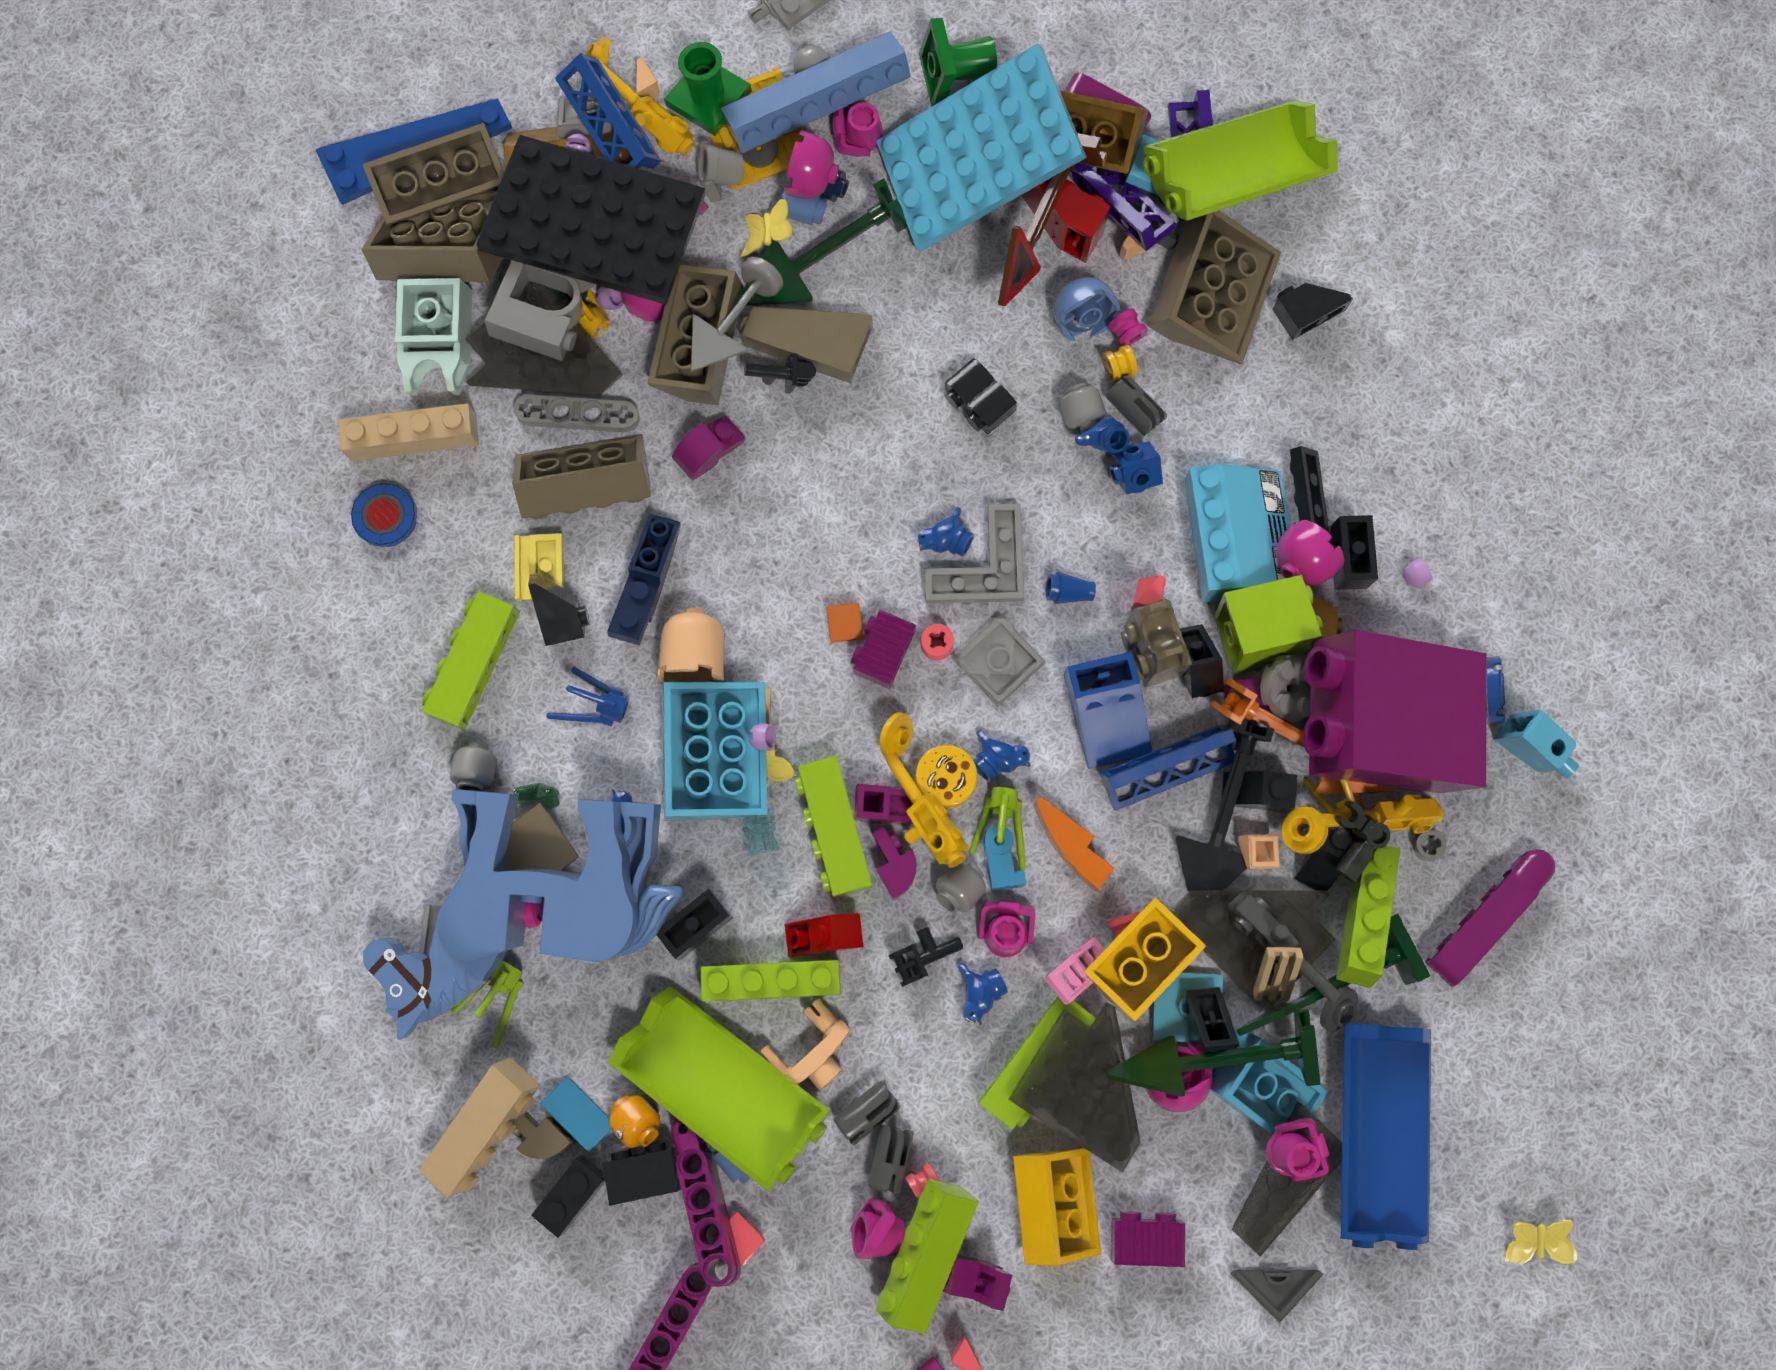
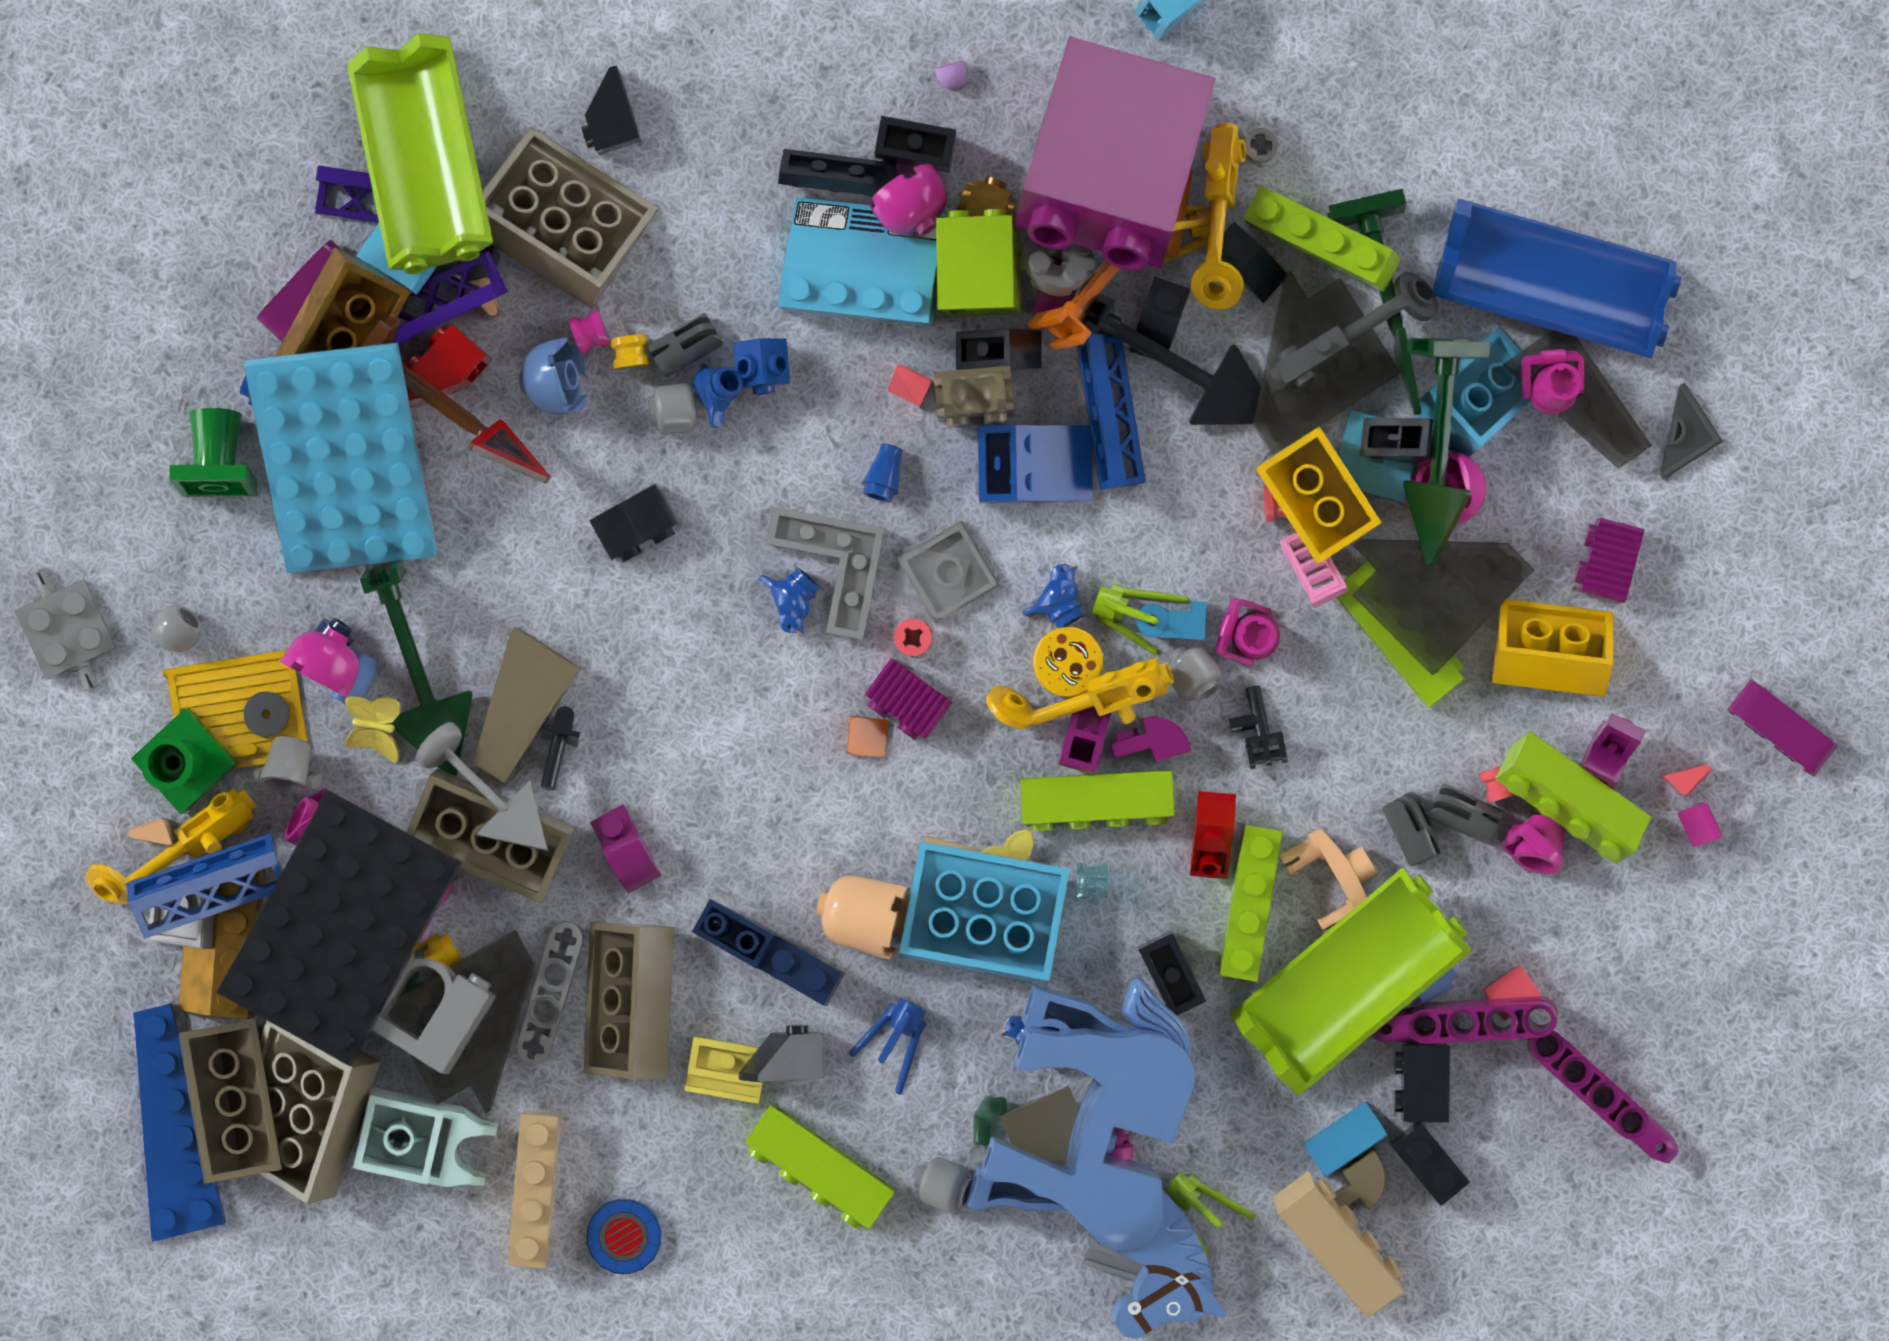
camera: 80 degrees left, 10 degrees up
(579, 139) = (243, 930): lavender hinge -> none
(634, 1121) = (1366, 1079): light orange head -> none
(763, 736) = (984, 855): lavender hinge -> none
(816, 92) = (219, 632): medium blue brick -> none
(859, 131) = (268, 588): dark pink piece -> none
(981, 992) = (1312, 677): blue animal -> none
(1071, 844) = (1175, 540): orange slope -> none
(1260, 851) = (1226, 335): light nougat slope -> none
(1286, 988) = (1379, 360): tan tile -> none
(1370, 836) = (1241, 215): pearl dark grey bar -> none
(1494, 916) = (1353, 97): magenta piece -> none
(1495, 689) = (1107, 29): blue tile -> none
(1534, 1239) = (1701, 130): light yellow piece -> none

